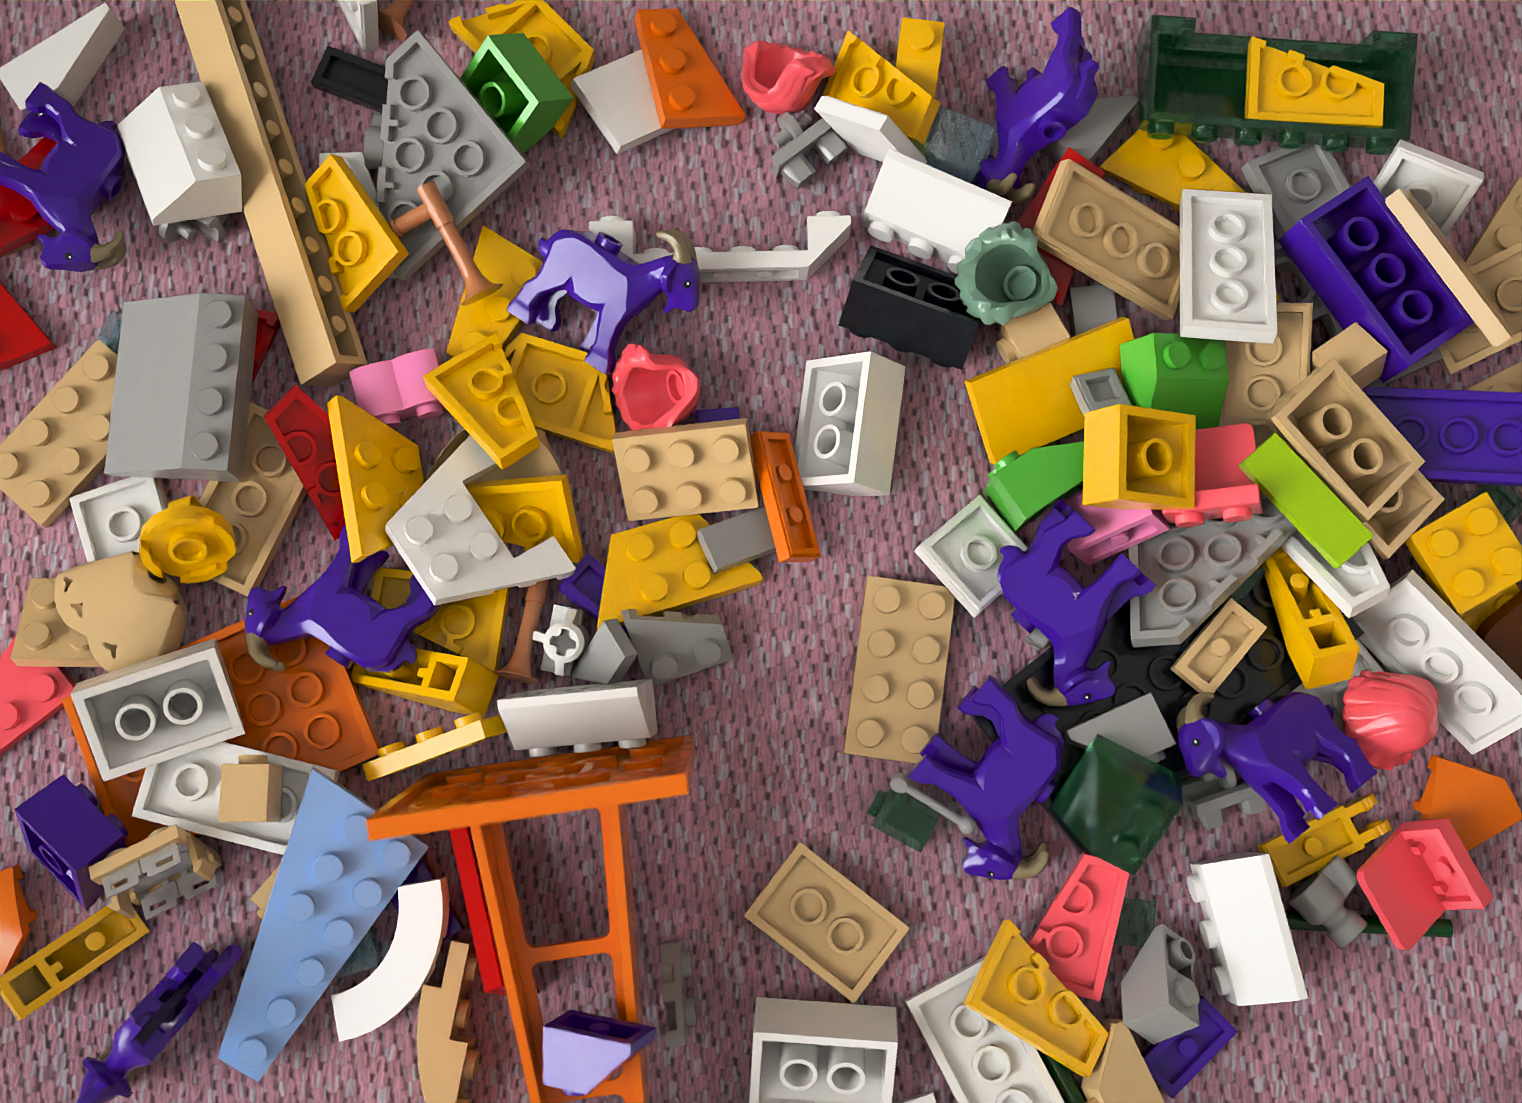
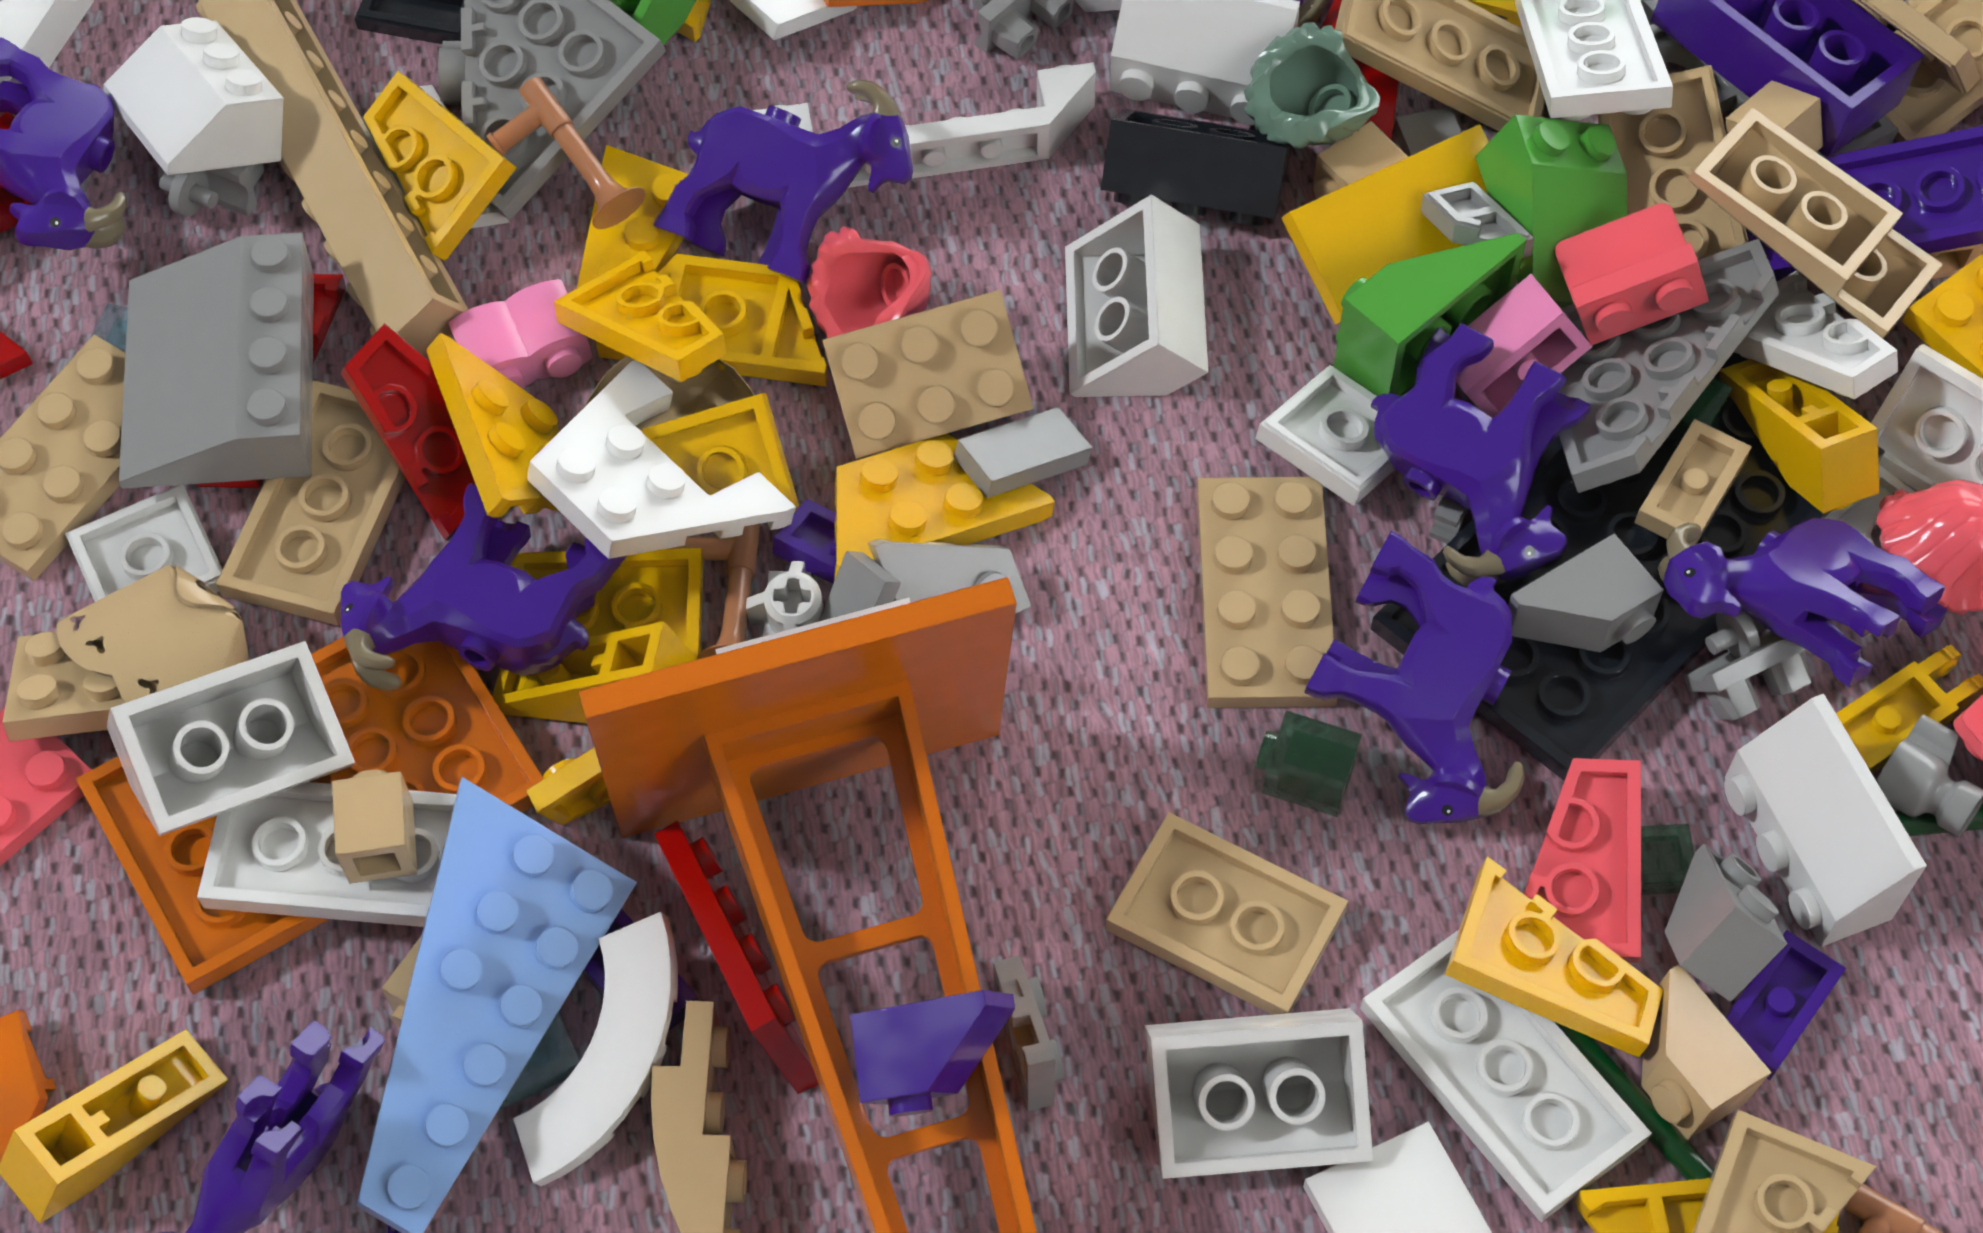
camera: 10 degrees left, 20 degrees down
(70, 835) = (108, 952): dark purple slope -> none
(155, 871) = (239, 968): piece -> none
(187, 542) = (250, 536): yellow tile -> none
(784, 497) = (1067, 395): orange tile -> none
(901, 783) = (1297, 701): light grey hinge -> none
(1119, 803) = (1601, 672): clear green slope -> none
(1139, 459) = (1528, 241): yellow slope -> none
(1305, 501) = (1762, 271): lime tile -> none

